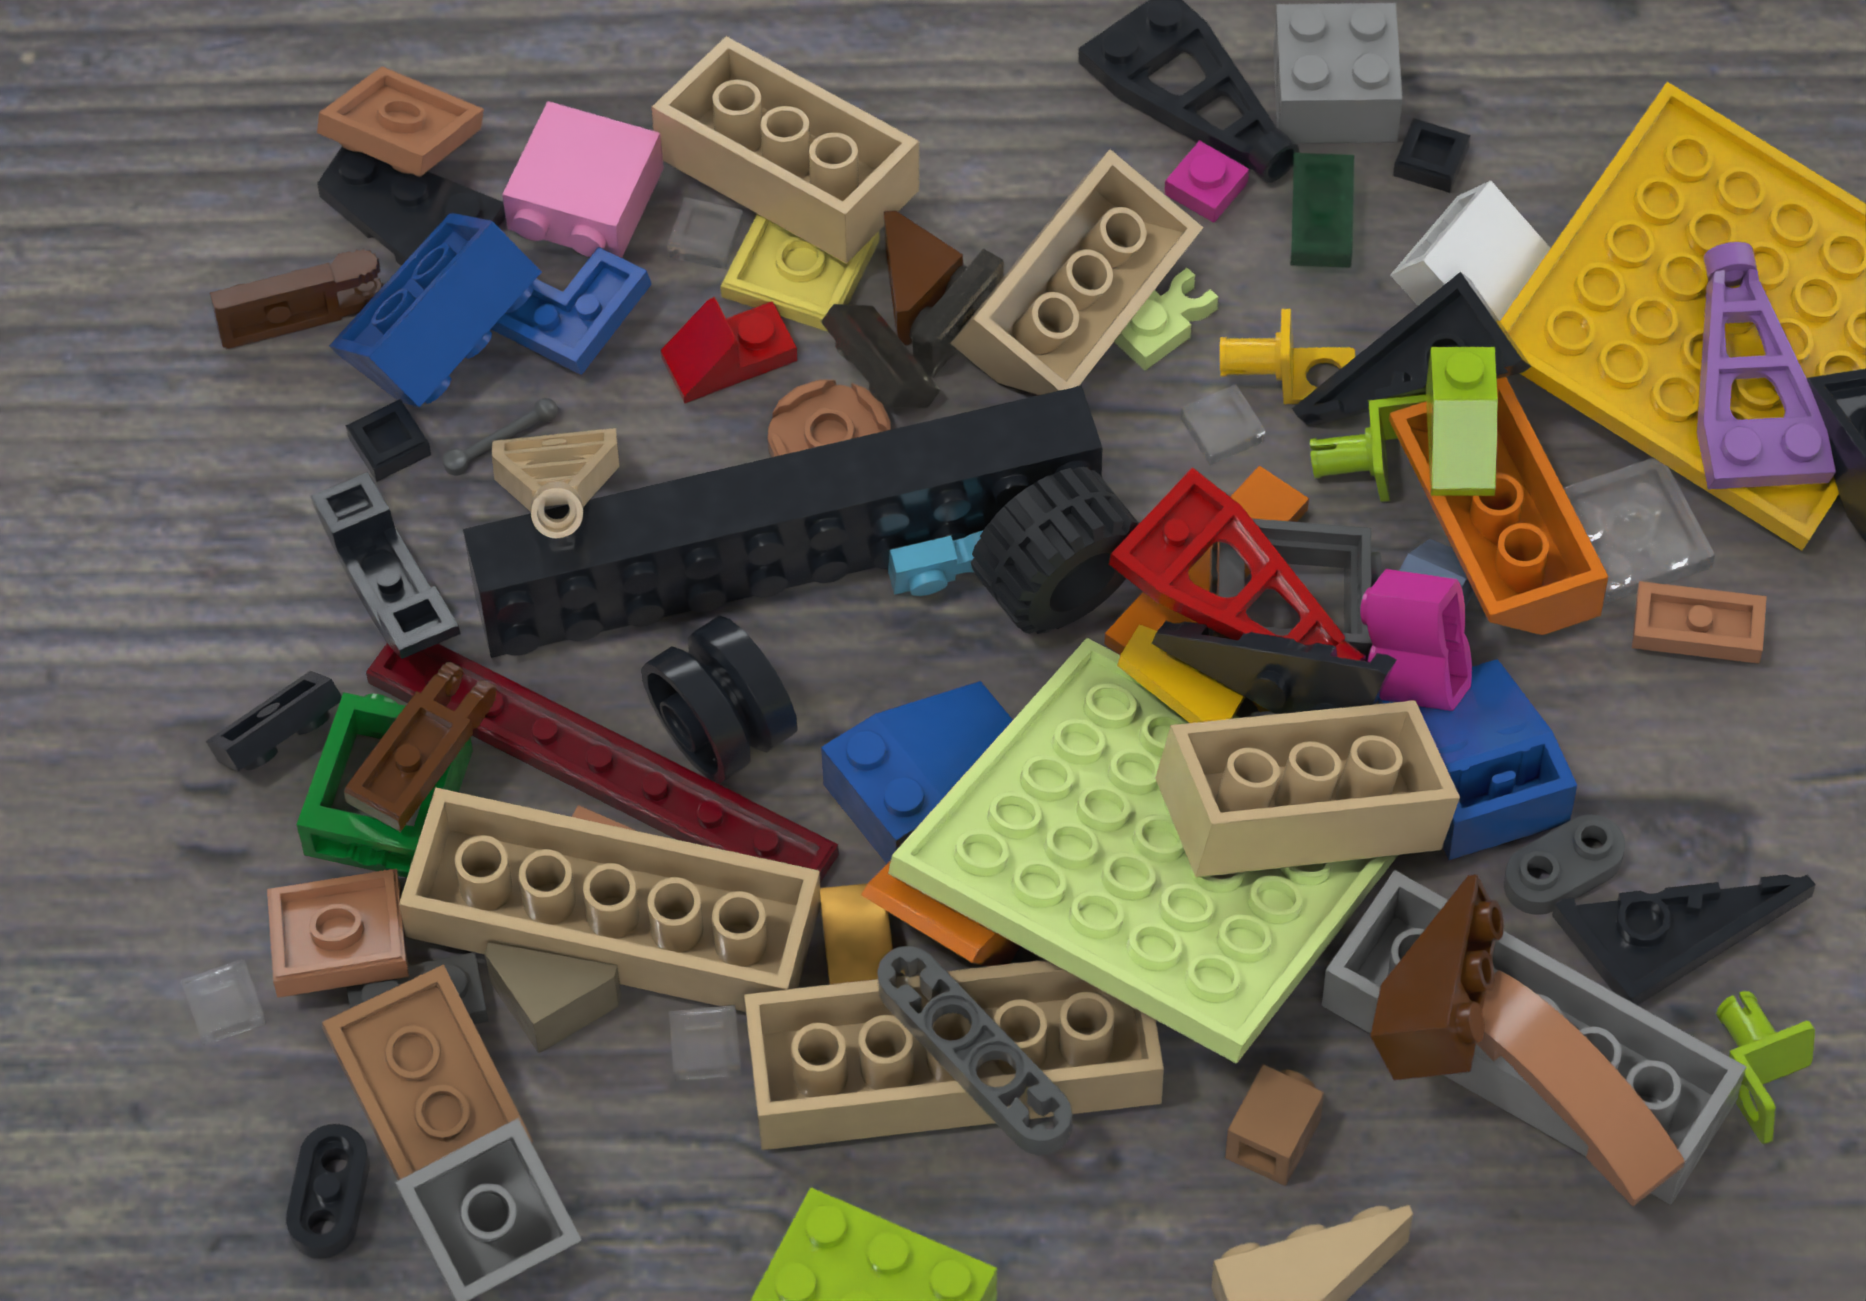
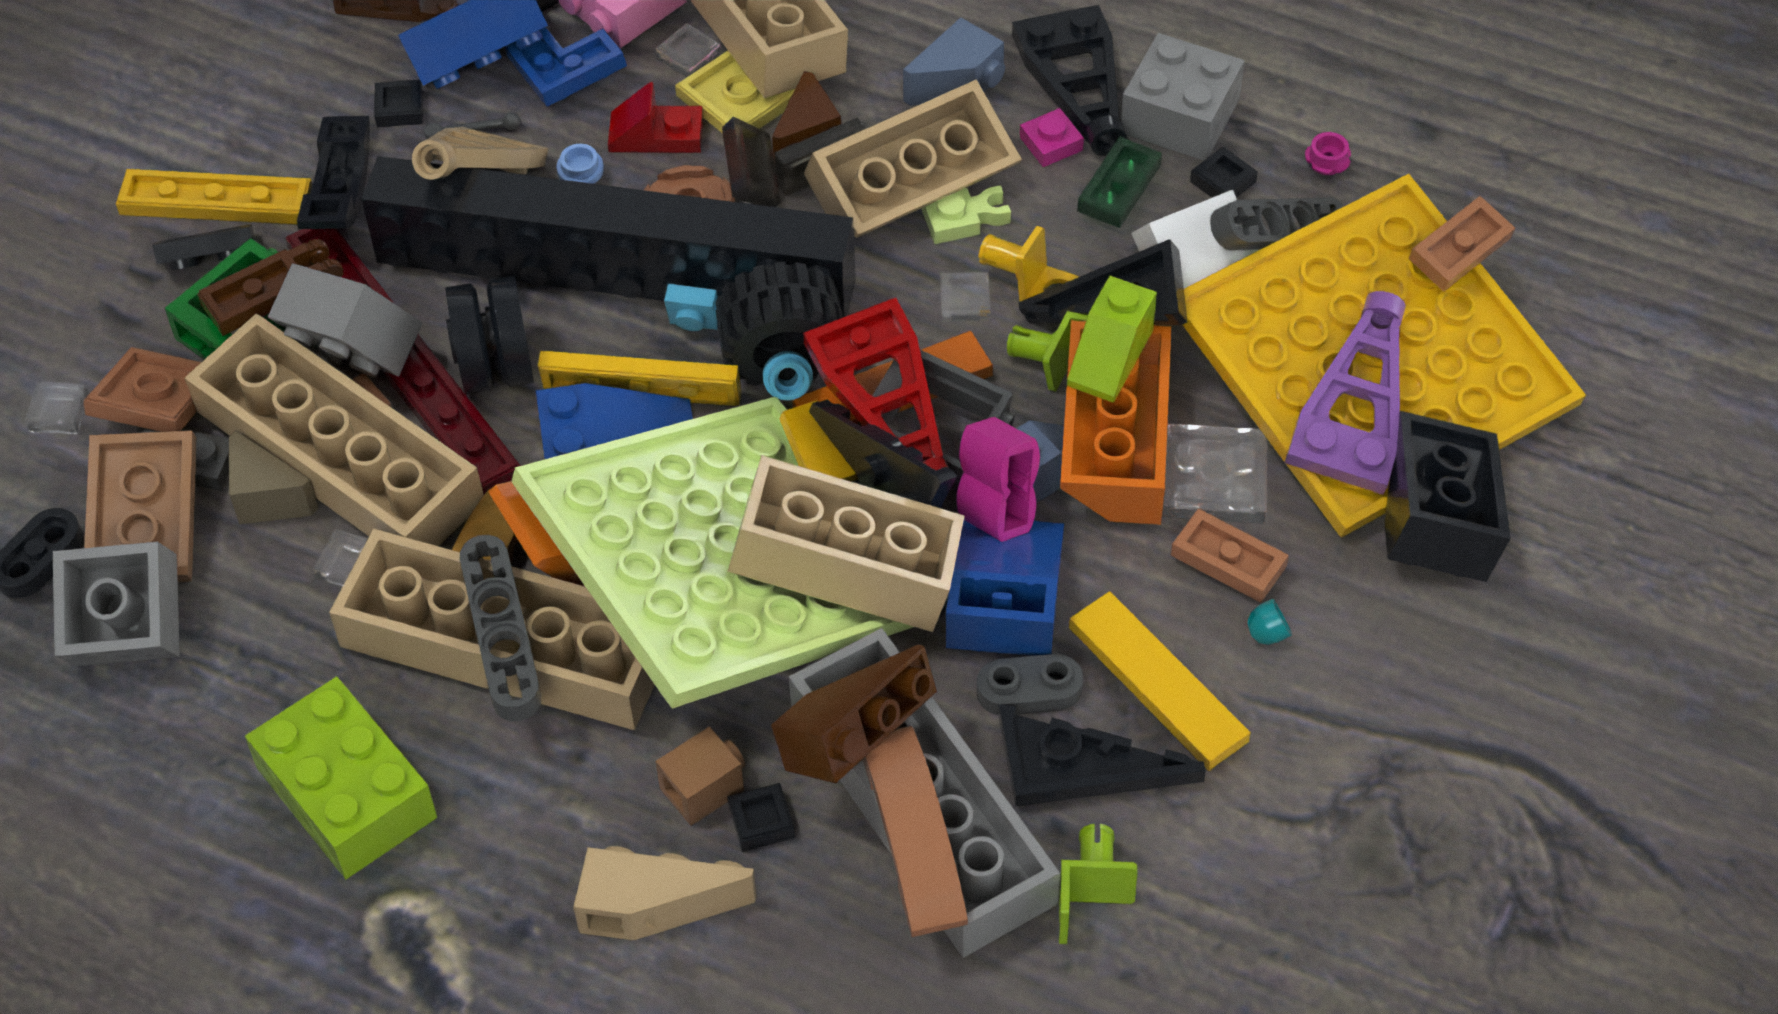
camera: 25 degrees right, 5 degrees down
(236, 653) = (212, 196): none -> yellow tile
(542, 754) = (344, 321): none -> light grey brick
(670, 437) = (580, 164): none -> light blue plate
(916, 678) = (689, 380): none -> yellow tile
(1050, 133) = (952, 61): none -> sand blue slope
(1105, 614) = (791, 388): none -> medium azure plate
(1361, 1142) = (761, 817): none -> black tile
(1538, 70) = (1328, 153): none -> dark pink plate
(1548, 199) = (1277, 214): none -> dark grey beam
(1700, 799) = (1159, 680): none -> yellow tile
(1772, 147) = (1461, 243): none -> nougat plate
(1783, 685) = (1268, 623): none -> teal hinge

